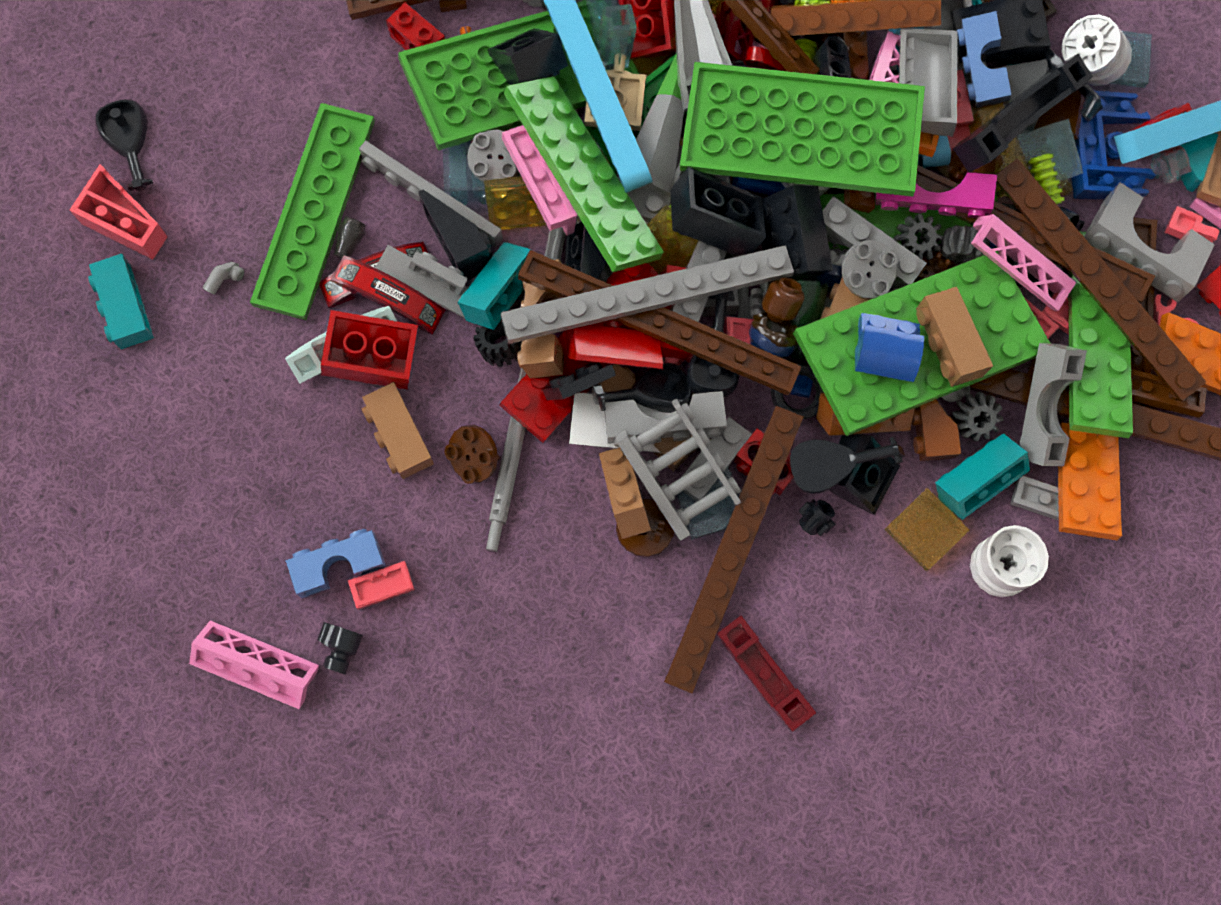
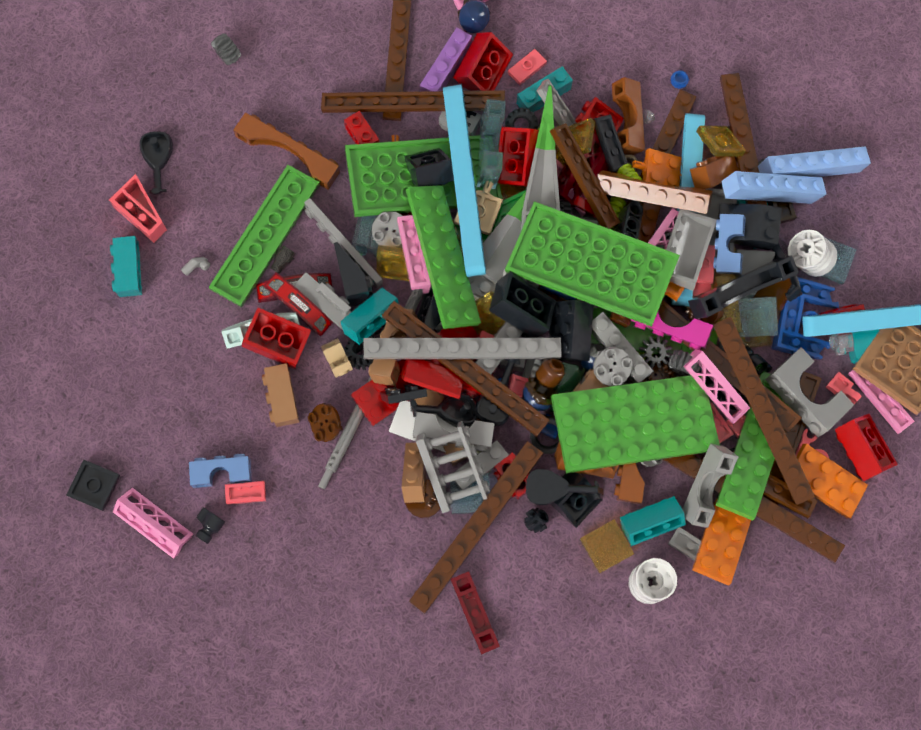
camera: 15 degrees right, 0 degrees up
(150, 631) = (93, 485): none -> black plate
(265, 69) = (255, 132): none -> dark orange arch
(465, 357) = (336, 358): none -> tan brick
(888, 347) = (607, 422): blue brick -> none
(953, 337) = (652, 426): medium nougat brick -> none
(981, 424) = (656, 475): dark grey gear -> none
(1046, 176) = (750, 334): lime piece -> none

